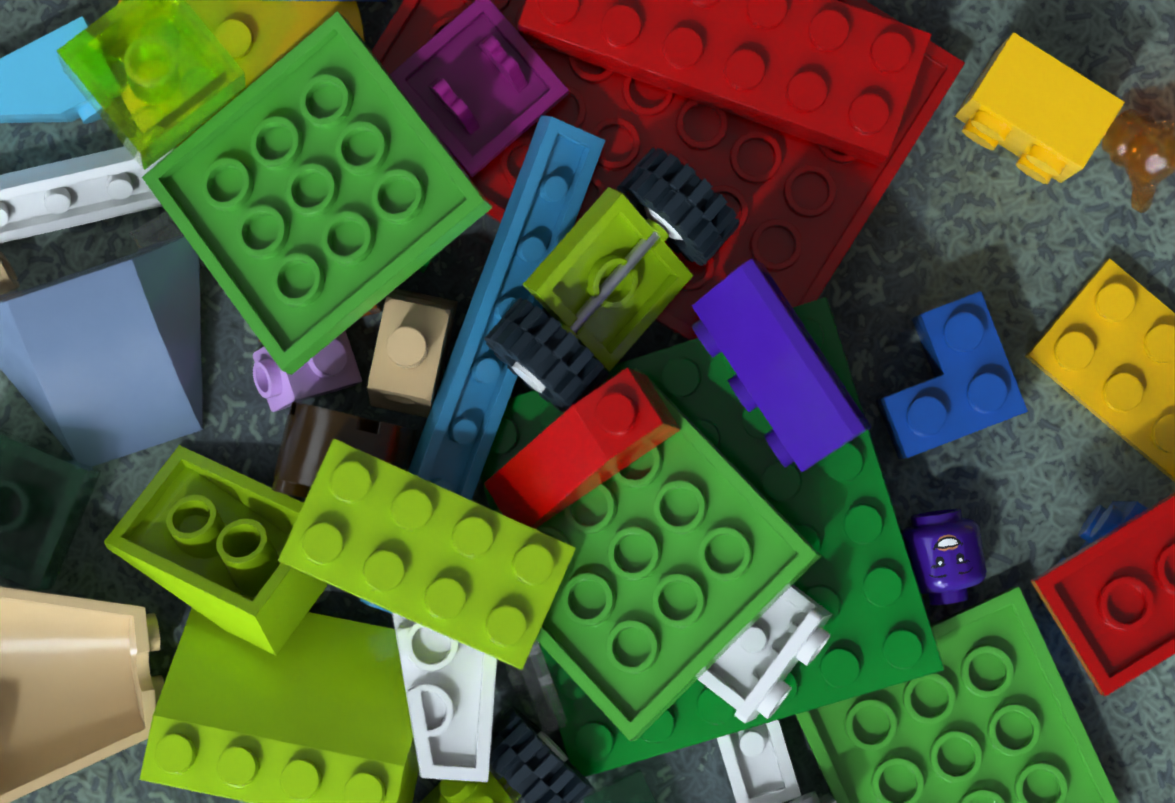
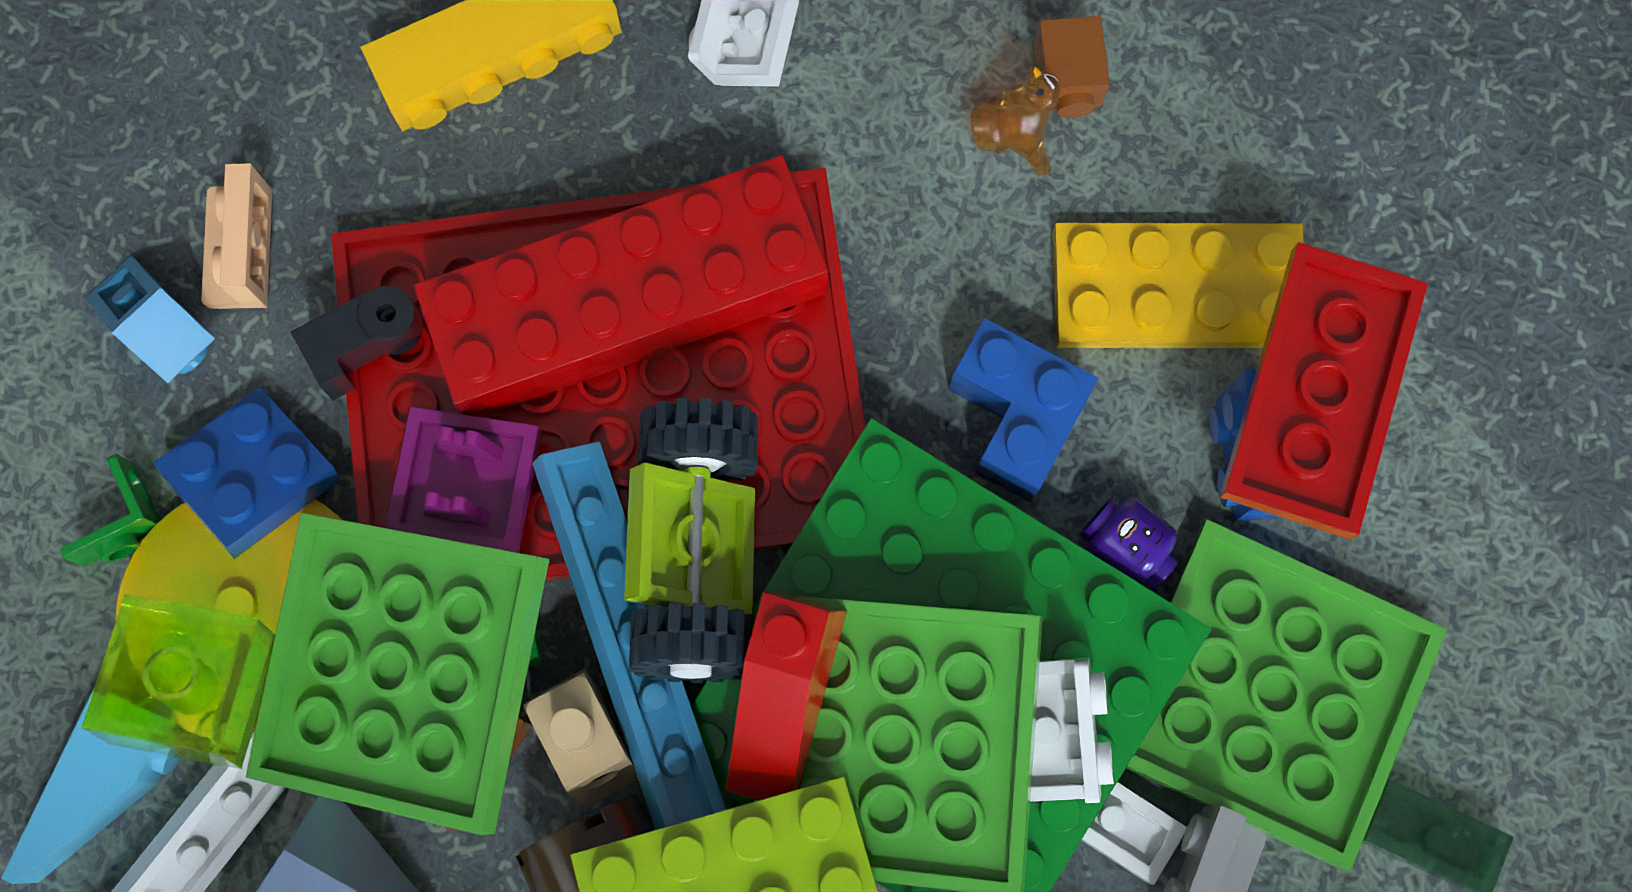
camera: 40 degrees left, 10 degrees down
(325, 373) = (522, 813): lavender bracket -> none
(777, 367) = (881, 495): dark purple slope -> none
(1037, 111) = (910, 153): yellow brick -> none

